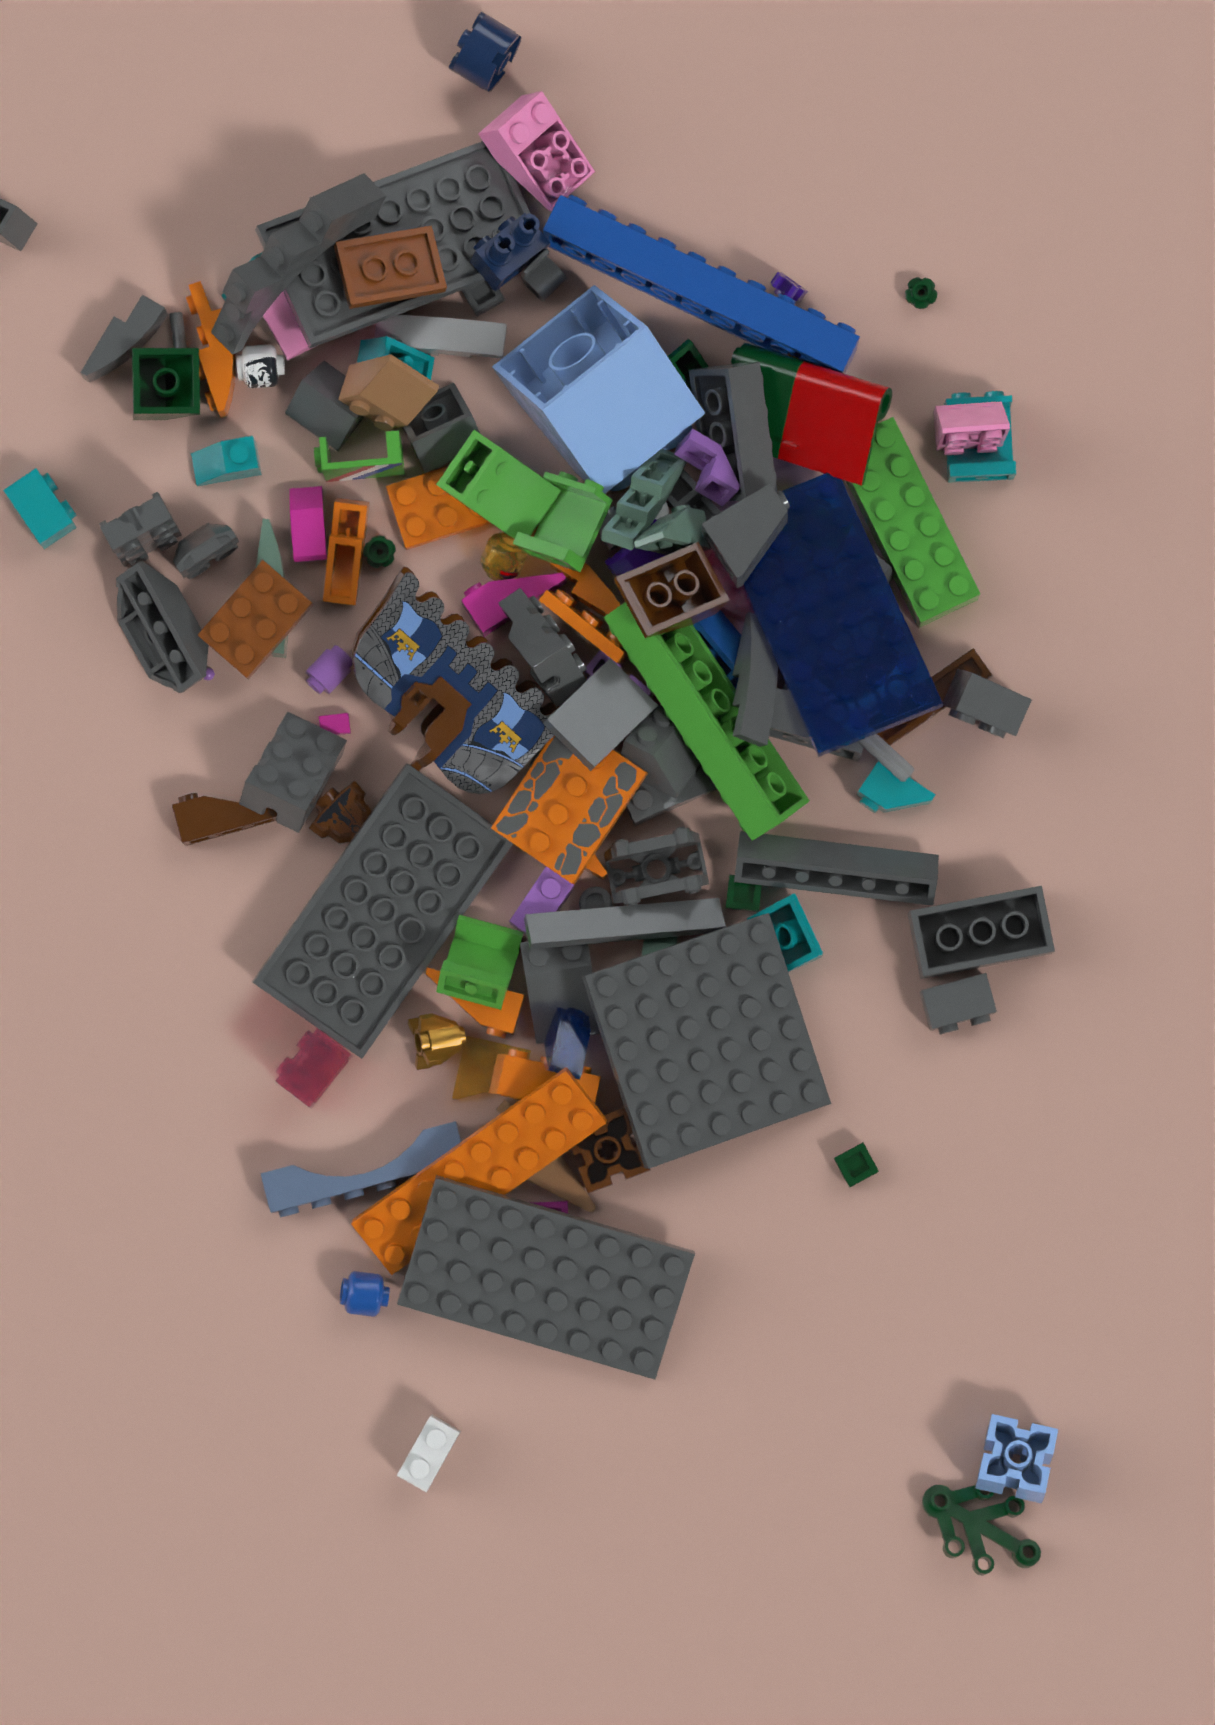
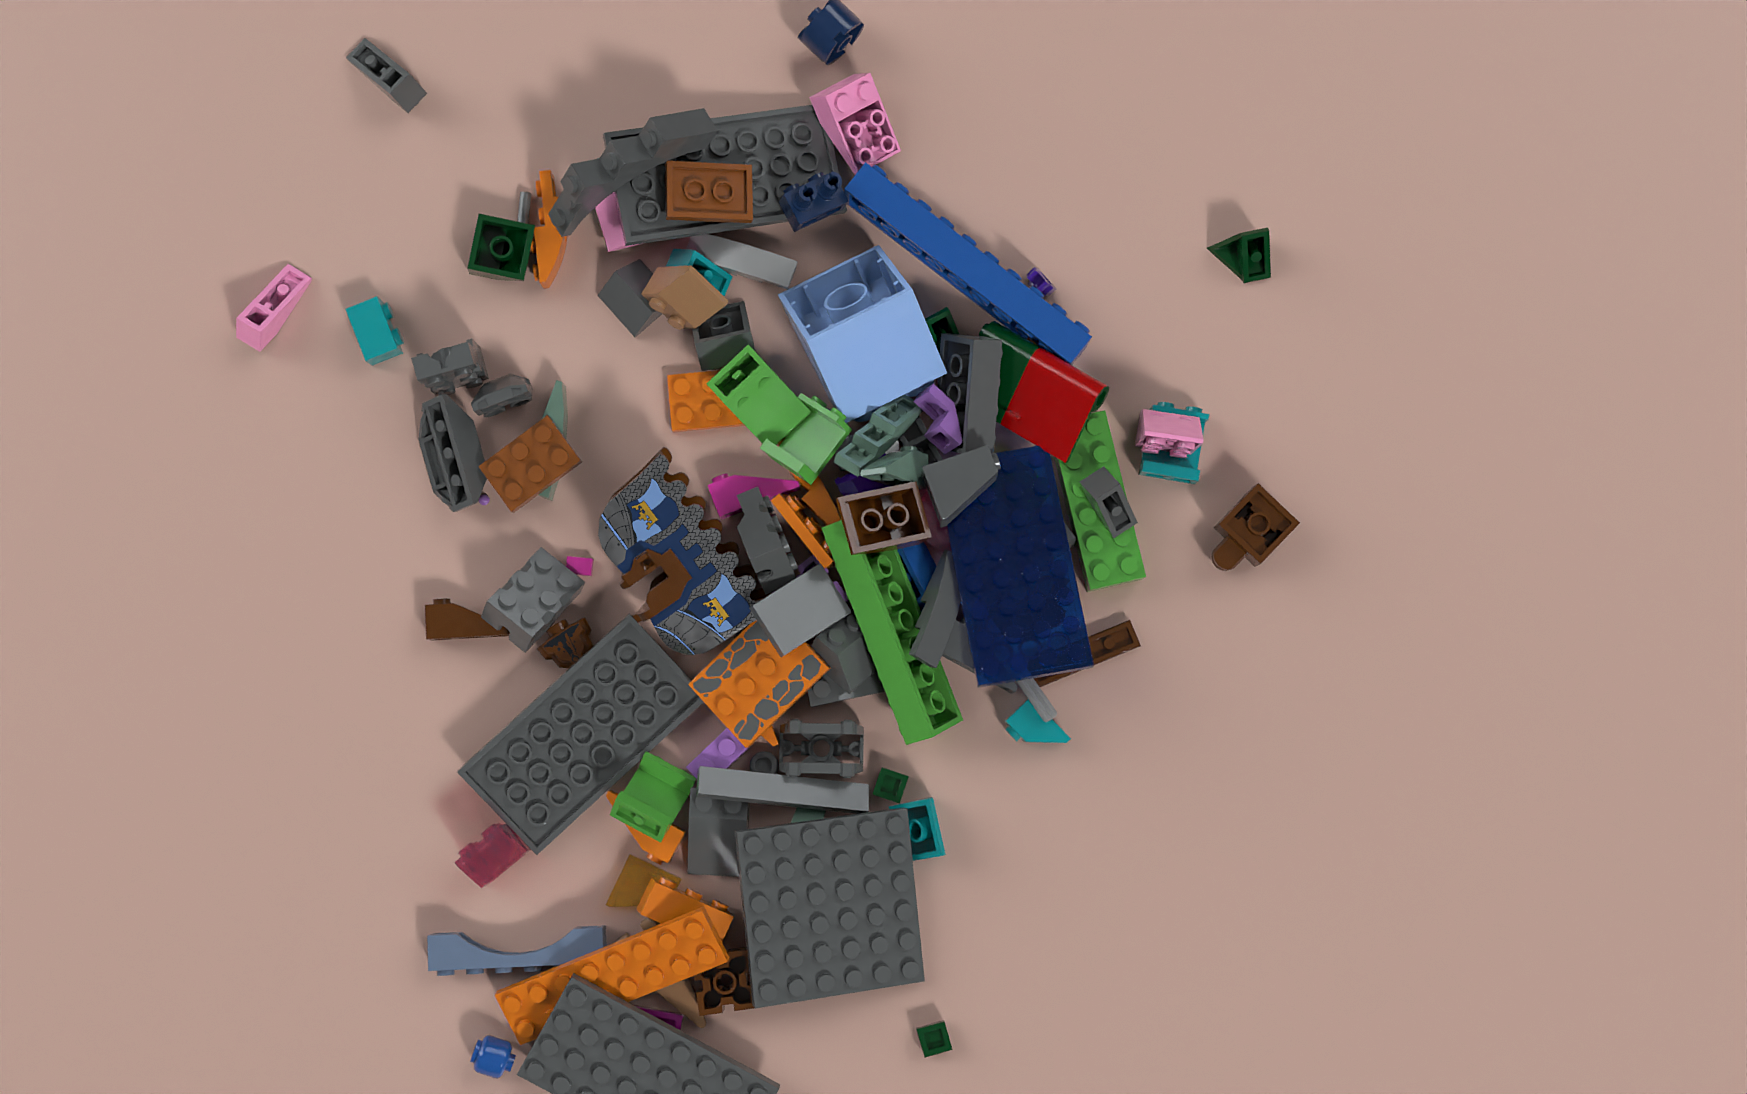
camera: 10 degrees right, 0 degrees up
(120, 338) = (471, 202): dark grey slope -> none
(226, 461) = (539, 325): teal slope -> none
(260, 366) = (584, 252): white head -> none
(308, 524) = (594, 392): dark pink slope -> none
(329, 670) = (583, 519): medium lavender brick -> none
(345, 551) = (621, 422): orange slope -> none
(361, 468) = (675, 359): bright green panel -> none
(370, 551) = (649, 421): dark green plate -> none
(435, 1039) = (602, 853): pearl gold brick -> none
(482, 297) = (783, 235): dark grey tile -> none
(502, 558) = (749, 458): clear yellow head -> none
(542, 276) = (837, 227): dark grey panel -> none
(567, 1041) = (712, 881): clear blue slope -> none
(837, 868) = (974, 783): dark grey brick -> none
(917, 300) = (1147, 317): dark green plate -> none
(919, 518) = (1109, 501): none -> dark grey slope
(958, 1003) = (1051, 919): dark grey brick -> none
(981, 932) = (1084, 864): dark grey brick -> none
(989, 703) = (1136, 674): dark grey brick -> none
(1015, 205) = (1246, 254): none -> dark green slope
(1088, 516) = (1252, 530): none -> reddish brown brick

